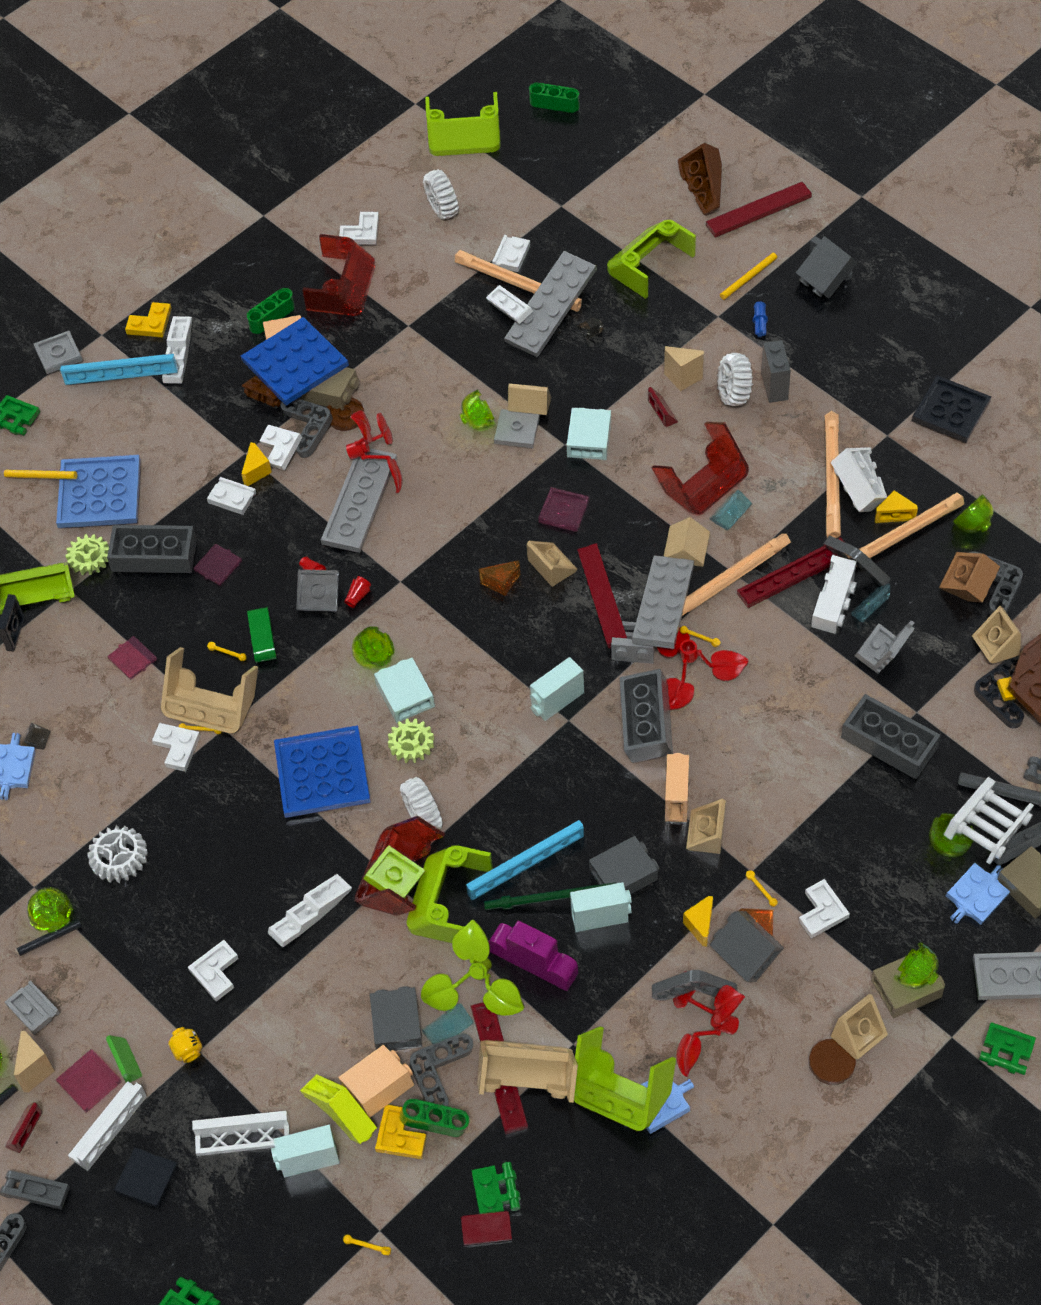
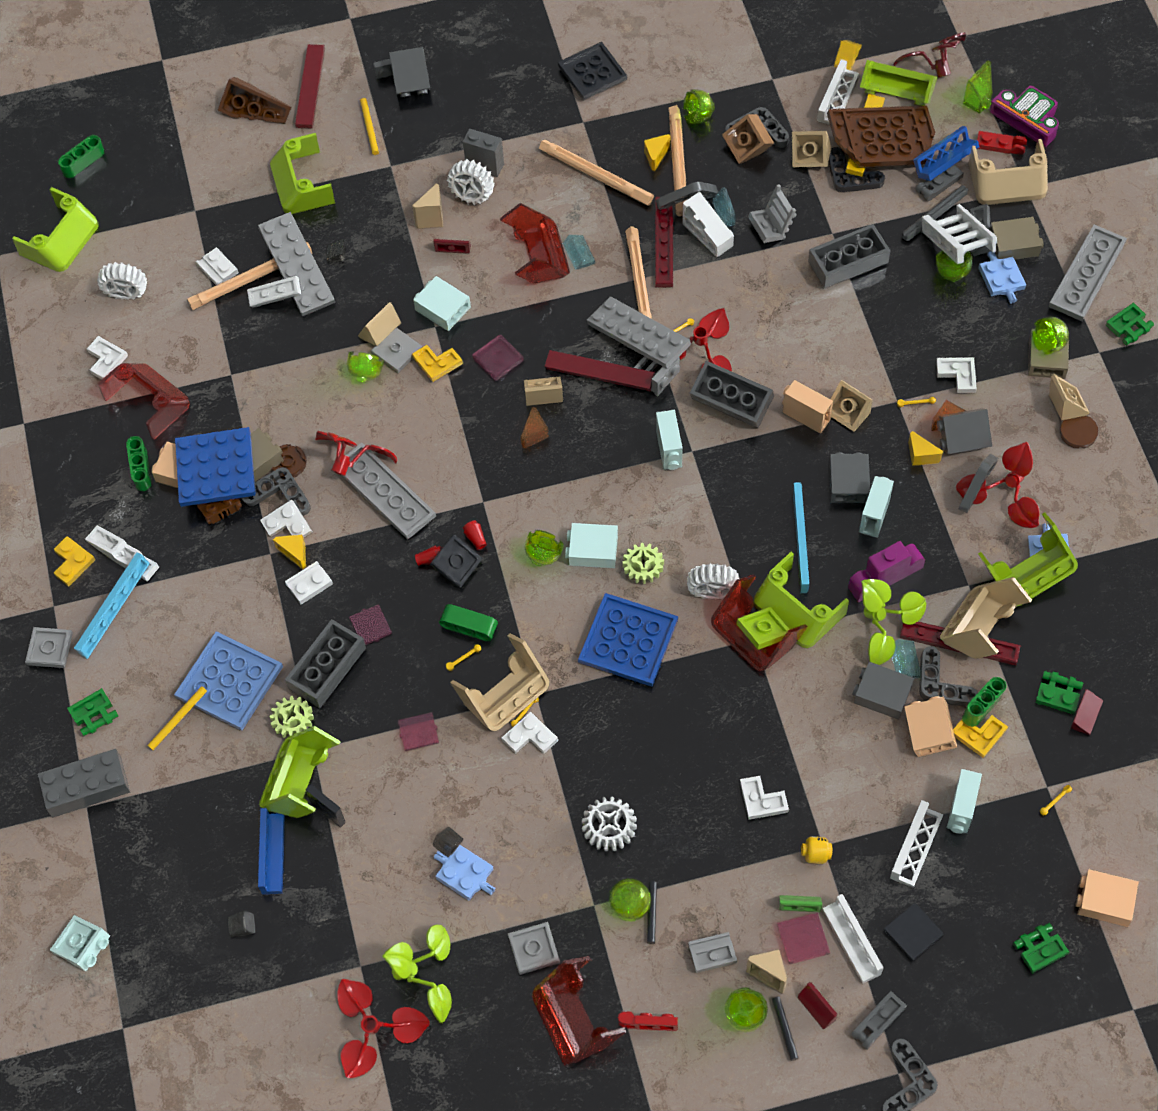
camera: 60 degrees left, 5 degrees up
(310, 910) = (749, 707): white slope -> none
(341, 1107) = (936, 760): neon yellow arch -> none
(508, 902) = (828, 566): dark green bar -> none
(519, 465) = (435, 366): none -> yellow plate
(687, 541) = (588, 294): tan slope -> none
(760, 318) = (417, 140): blue axle -> none
(859, 478) = (618, 156): white wedge -> none

